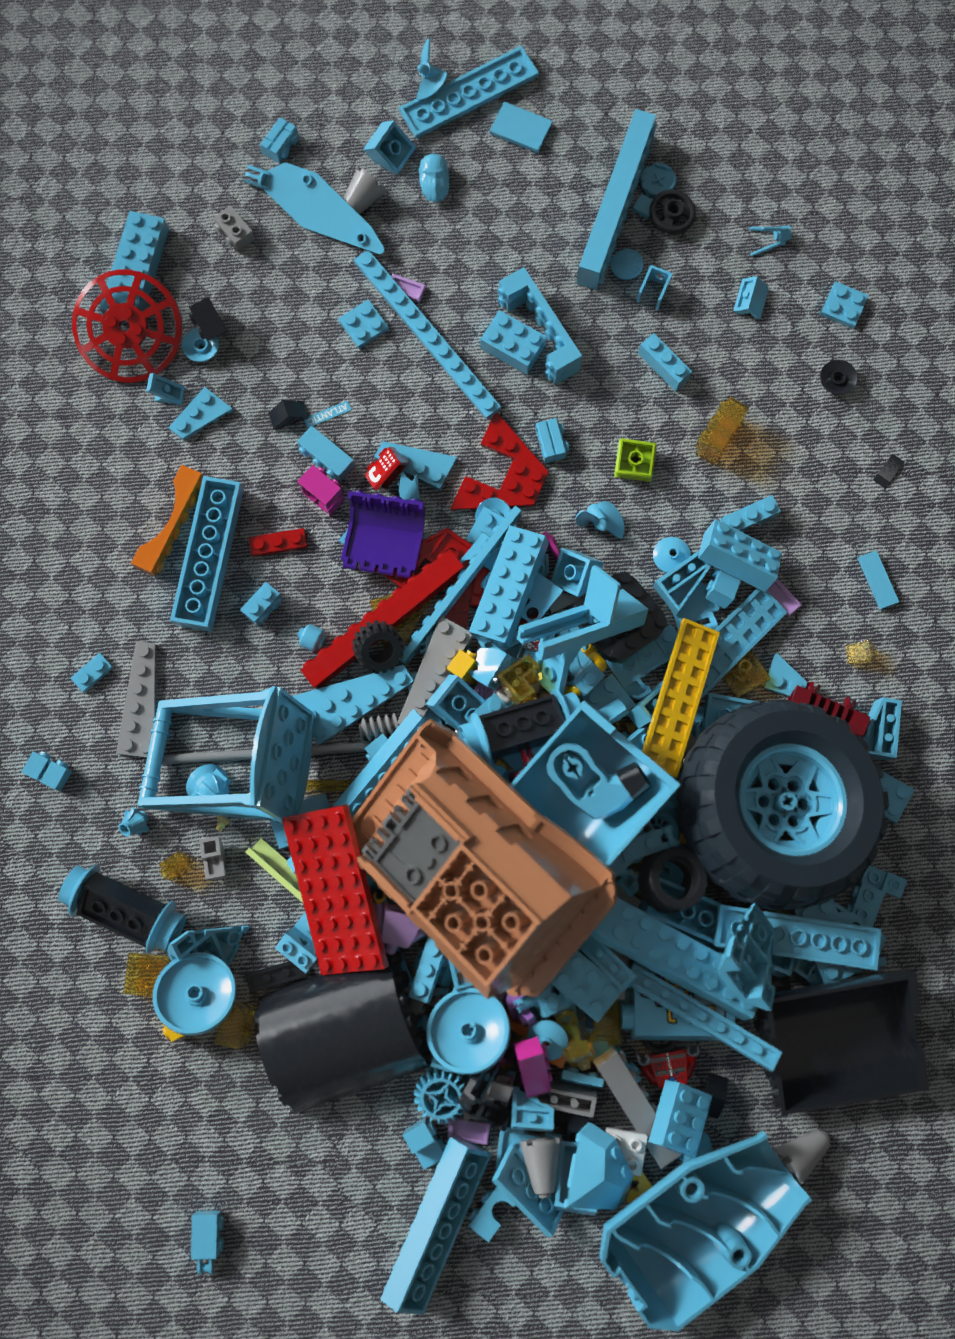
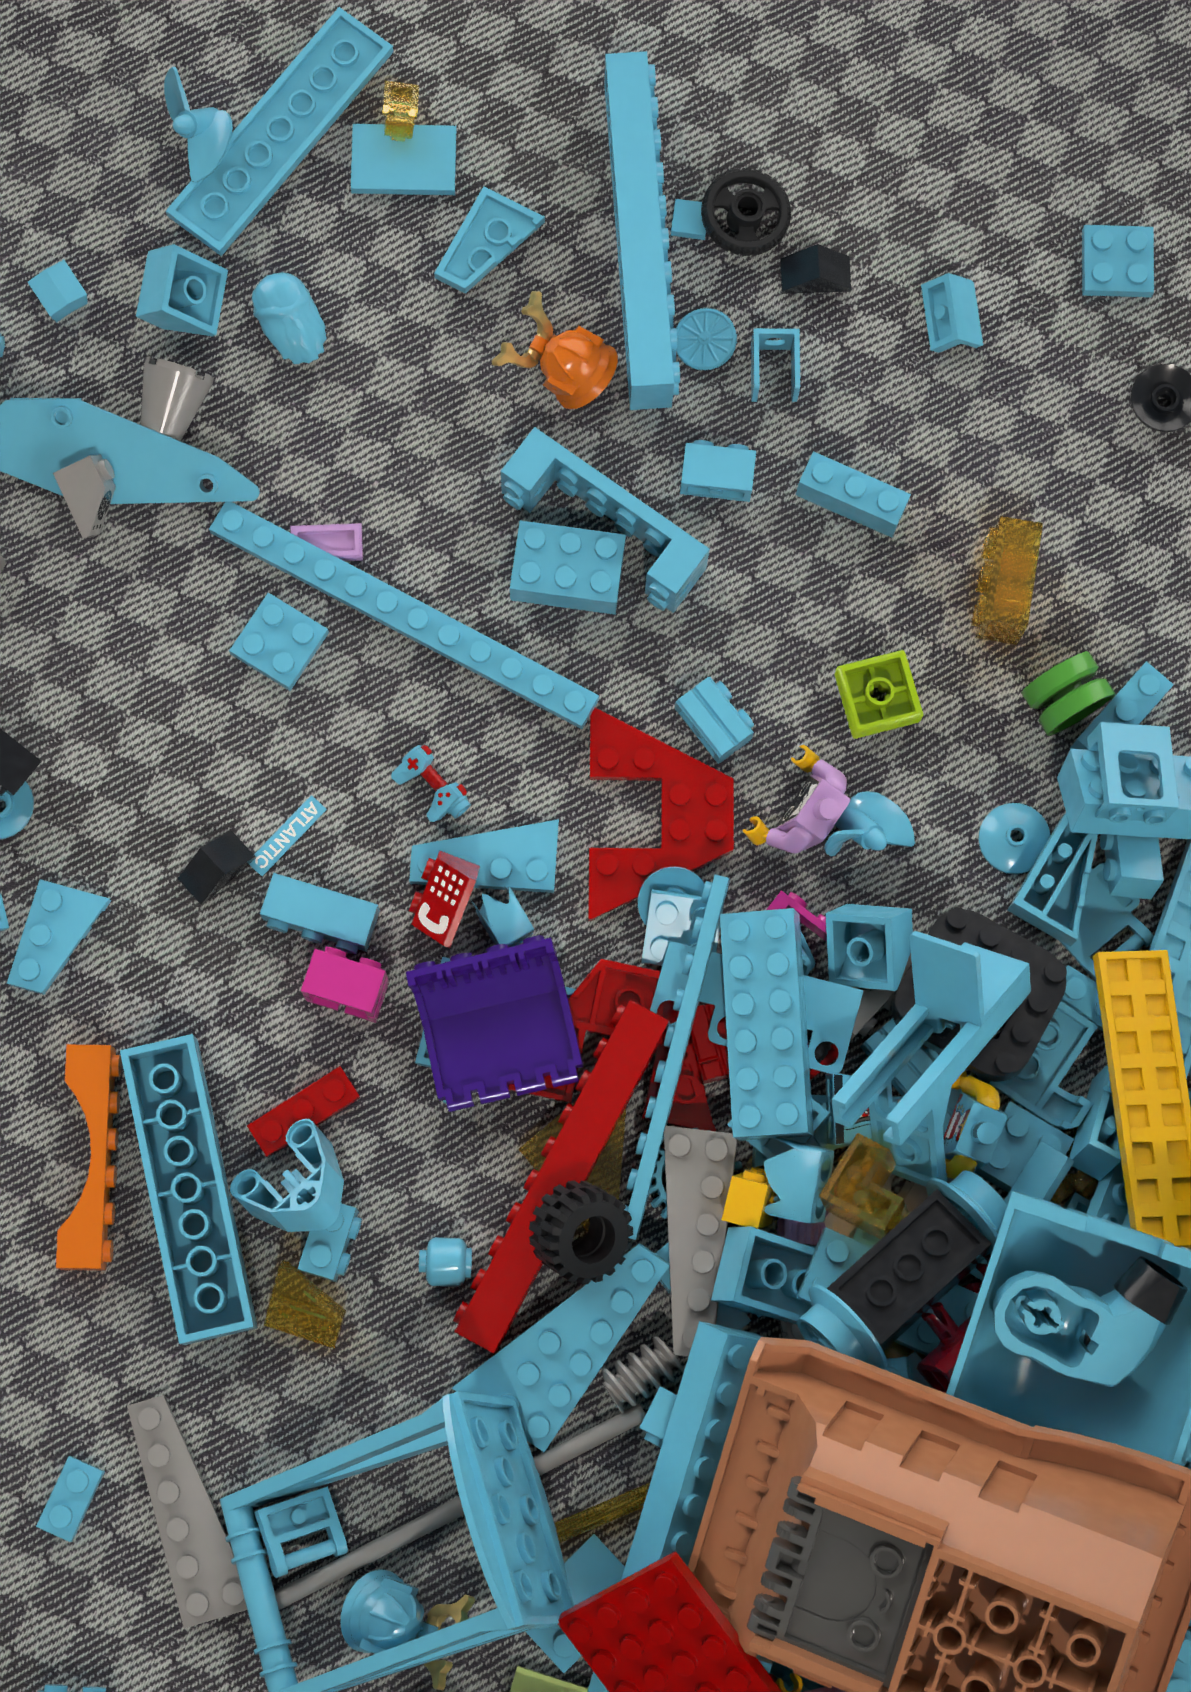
camera: 30 degrees left, 0 degrees up
(189, 725) = (297, 1519): none -> medium azure plate
(235, 630) = (303, 1308): none -> clear yellow wing
(259, 579) = (311, 1201): none -> medium azure connector
(304, 219) = (88, 492): none -> light grey slope
(333, 125) = (58, 290): none -> medium azure piece
(409, 425) = (447, 798): none -> medium azure piece
(528, 103) = (400, 108): none -> clear yellow plate
(543, 177) = (485, 239): none -> medium azure wing
(557, 247) = (573, 362): none -> orange helmet
(578, 500) = (810, 813): none -> lavender torso
(604, 326) = (718, 471): none -> medium azure brick
(657, 179) = (693, 160): medium azure tile -> none
(694, 253) = (815, 271): none -> black slope
(727, 494) = (1069, 693): none -> bright green wheel
(748, 526) = (1118, 738): none -> medium azure window
(781, 233) = (951, 176): medium azure plant -> none

